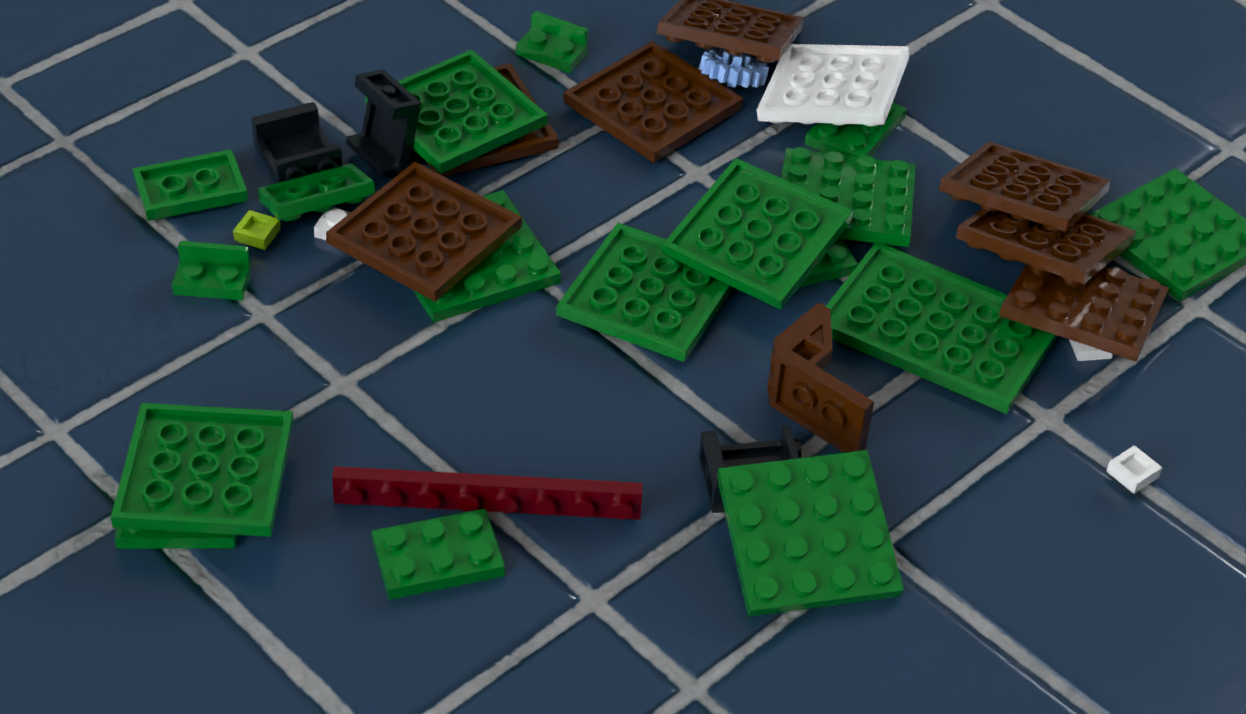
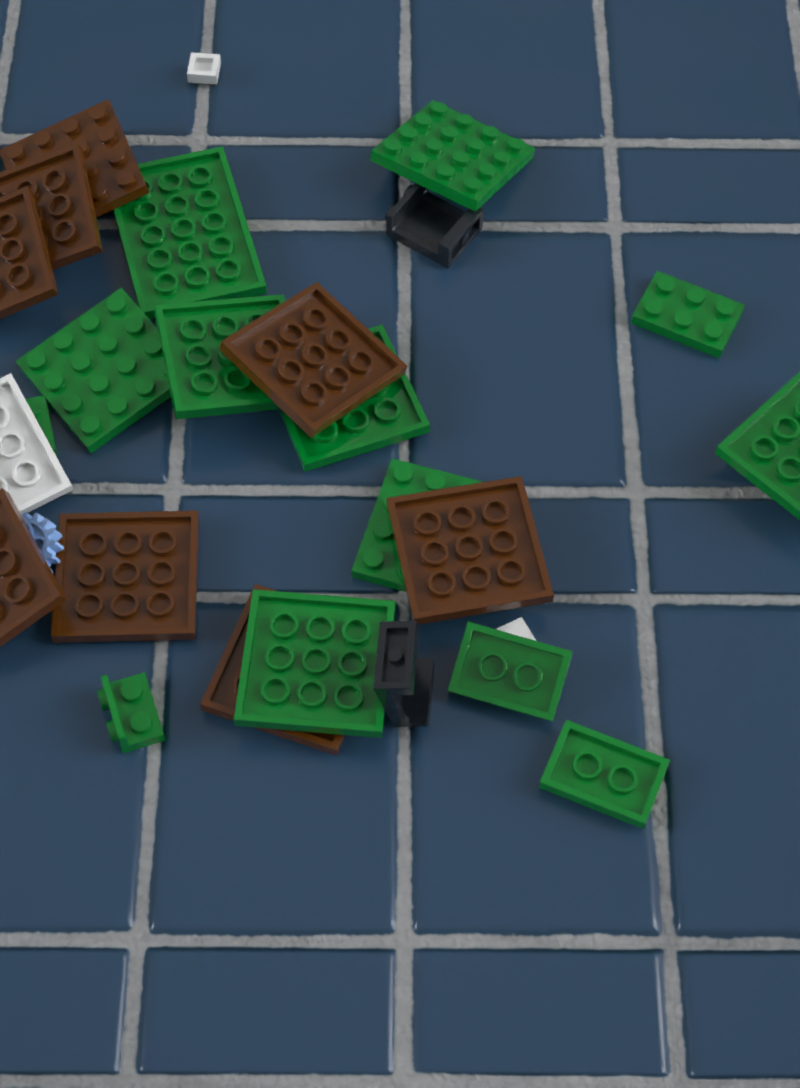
camera: 135 degrees left, 15 degrees up
(212, 270) = (659, 659): green bracket -> none
(256, 230) = (589, 676): lime plate -> none
(294, 143) = (476, 747): black panel -> none
(487, 491) = (625, 322): dark red plate -> none
(690, 260) = (313, 358): none -> reddish brown plate
(810, 394) = (323, 252): reddish brown bracket -> none

